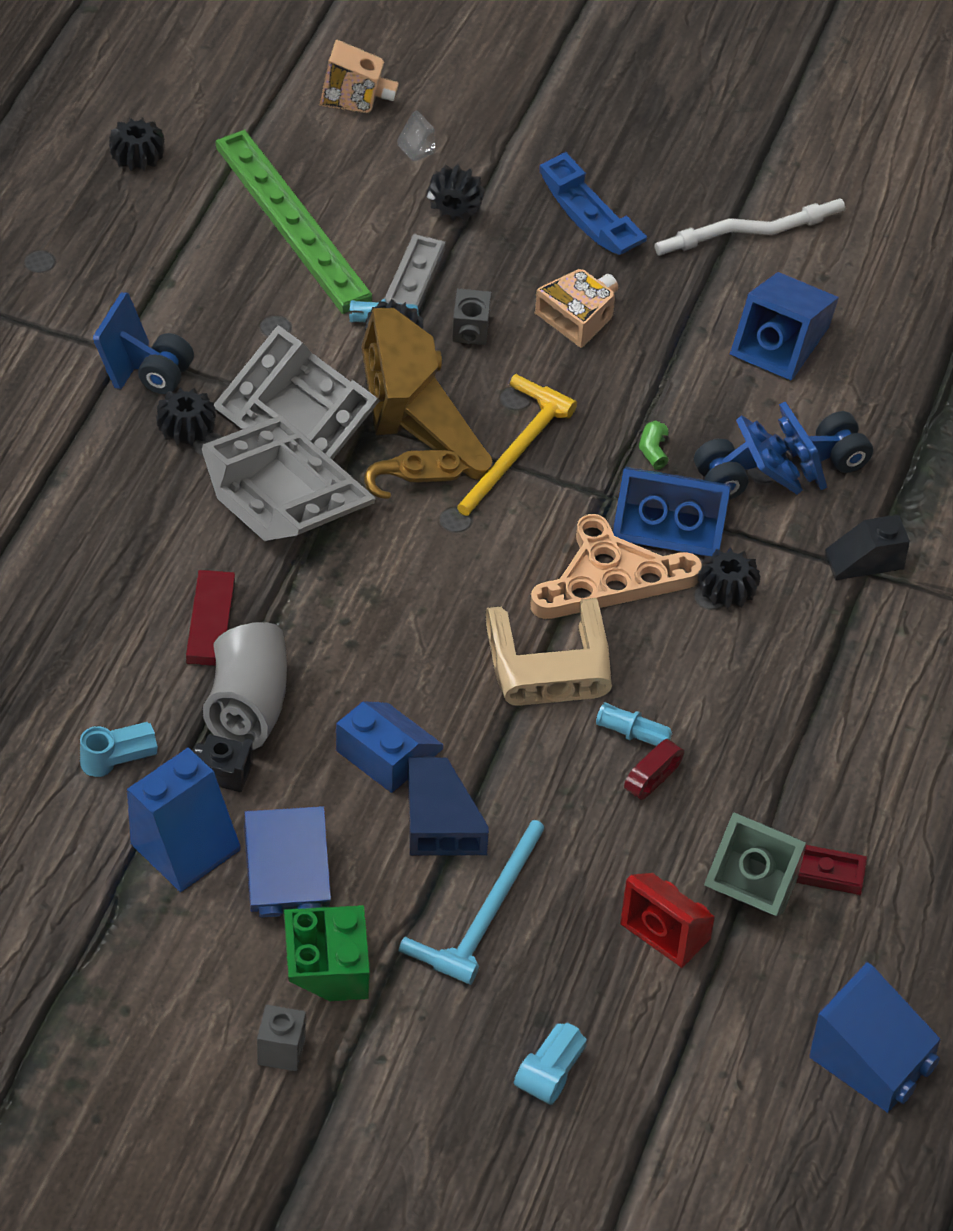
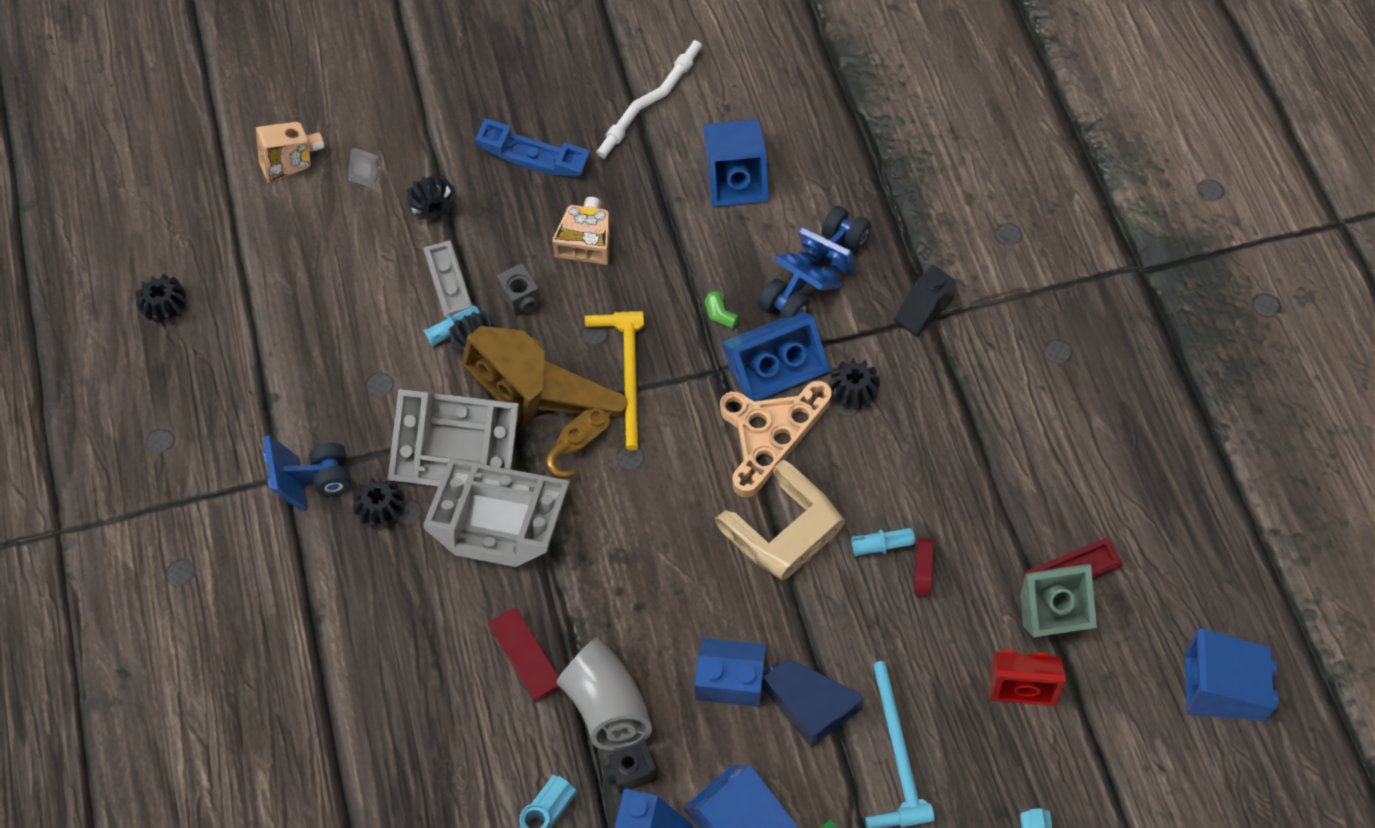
camera: 30 degrees left, 10 degrees up
(293, 220) = (325, 290): bright green tile -> none

